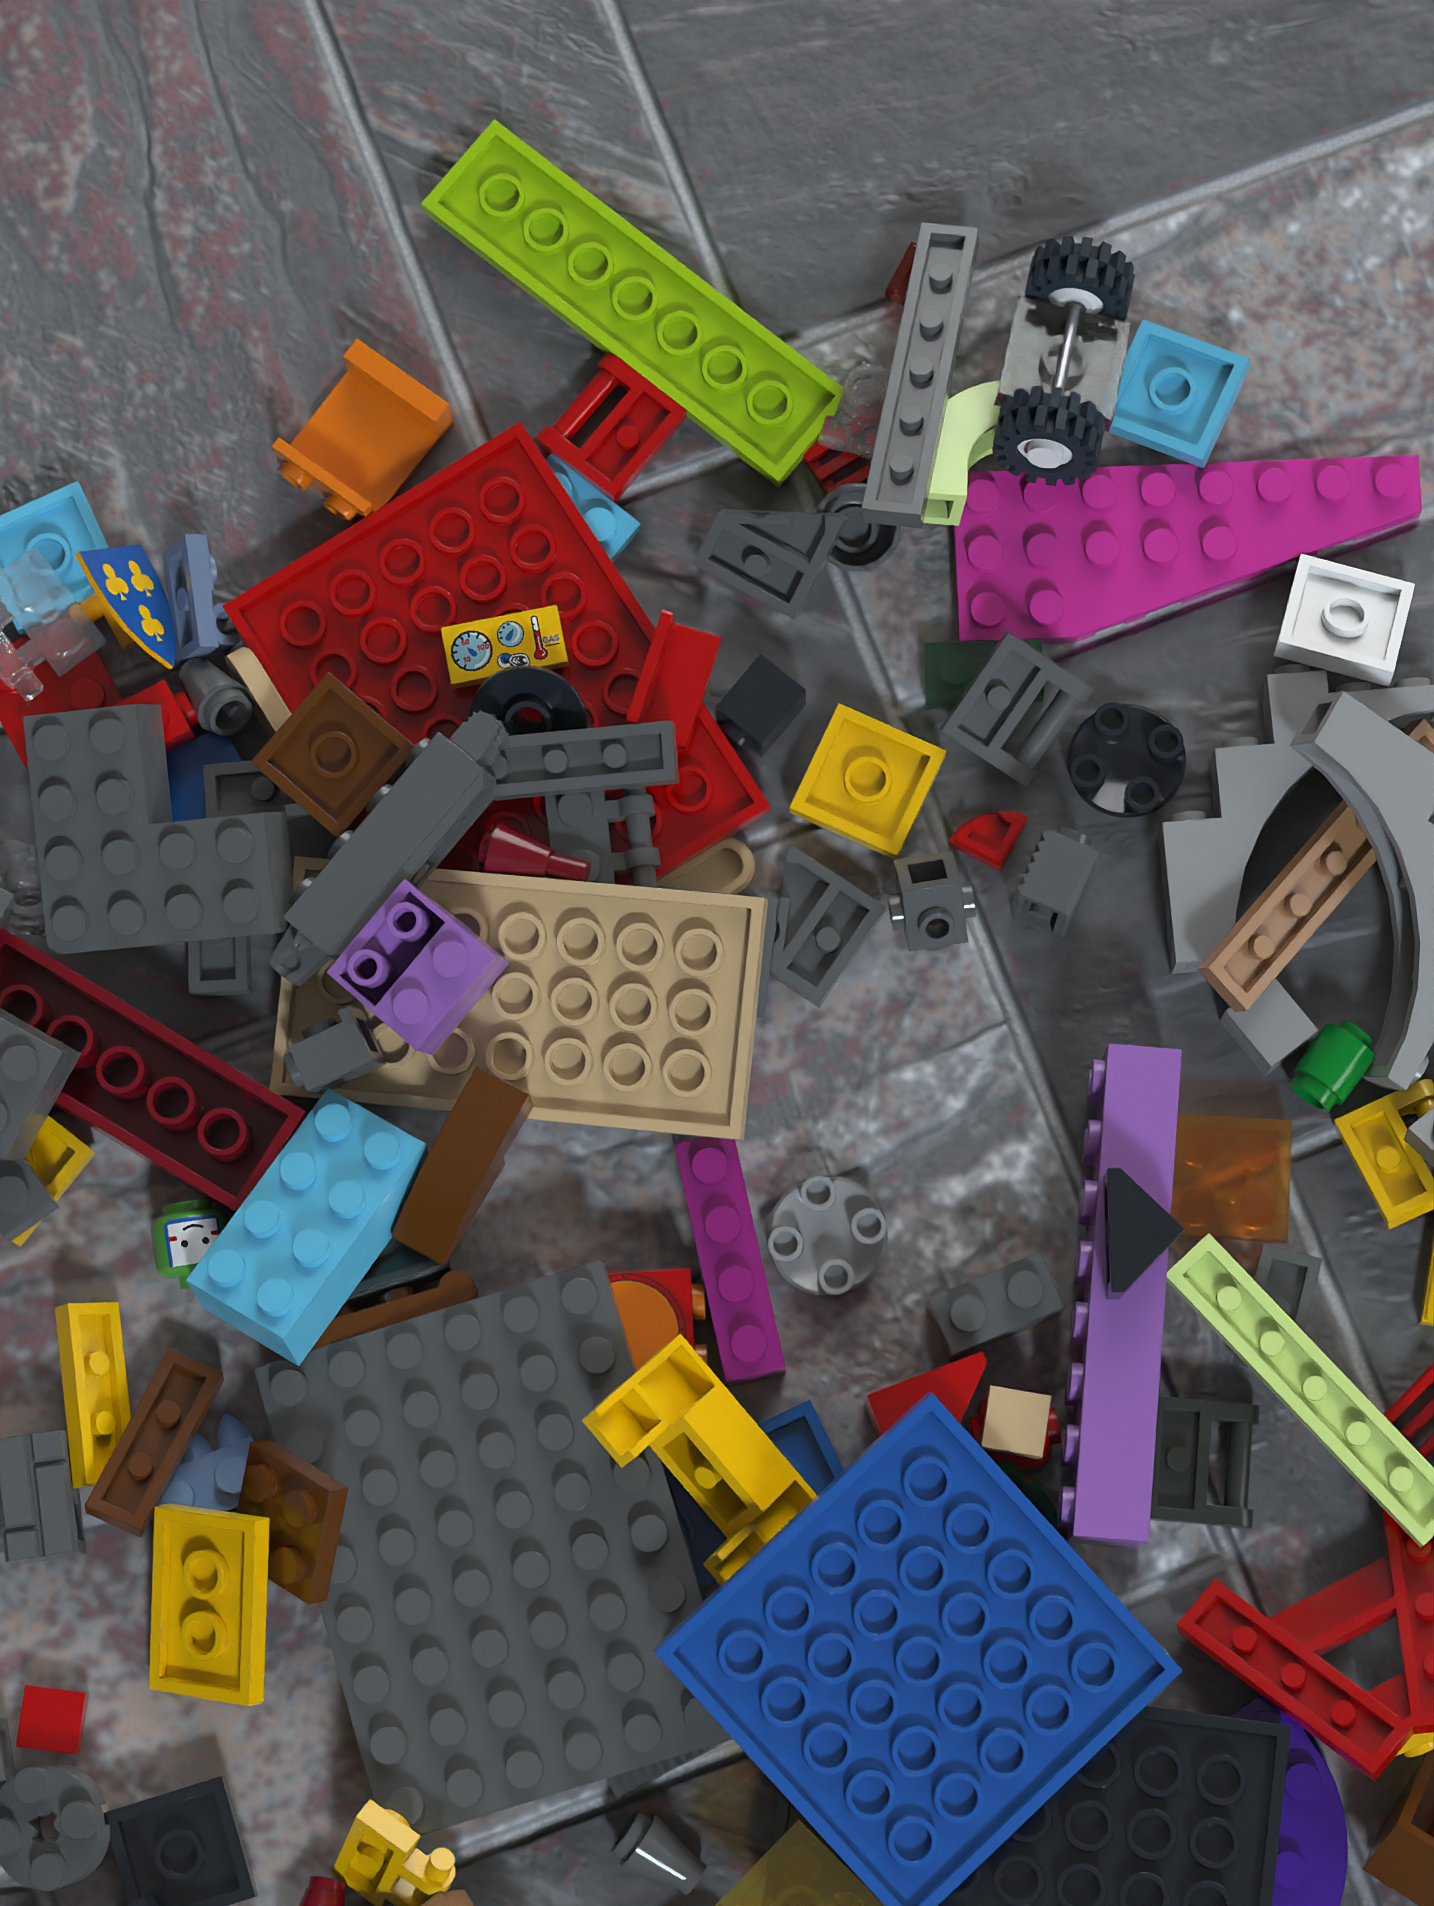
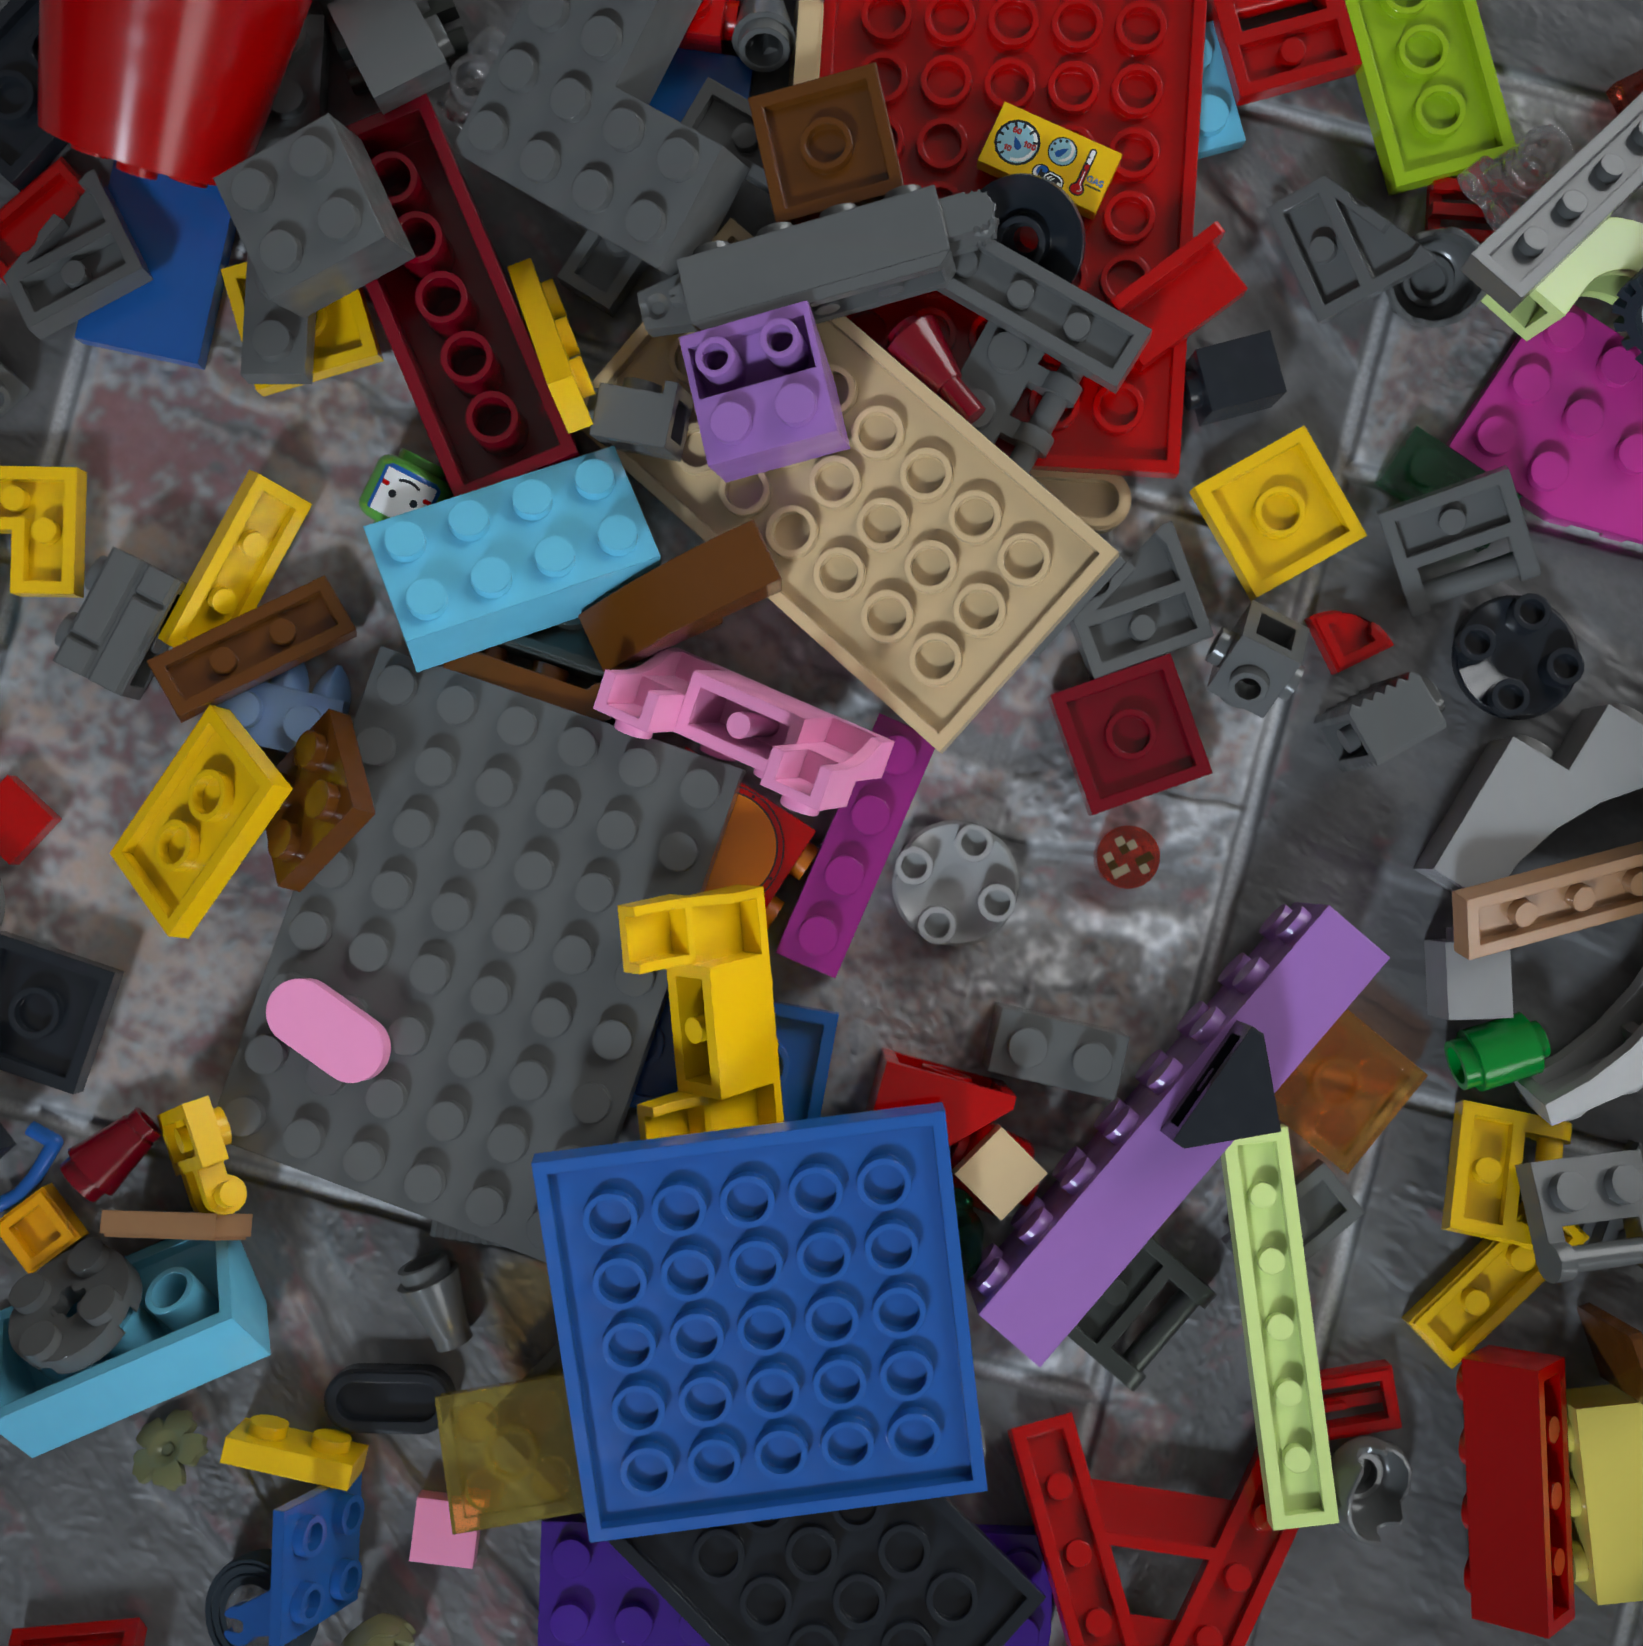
camera: 25 degrees right, 10 degrees up
(229, 1043) = (554, 344): none -> yellow plate
(426, 1685) = (328, 1030): none -> bright pink tile
(565, 1226) = (789, 743): none -> bright pink bracket
(877, 1027) = (1129, 734): none -> dark red plate
(944, 1121) = (1126, 857): none -> clear red tile

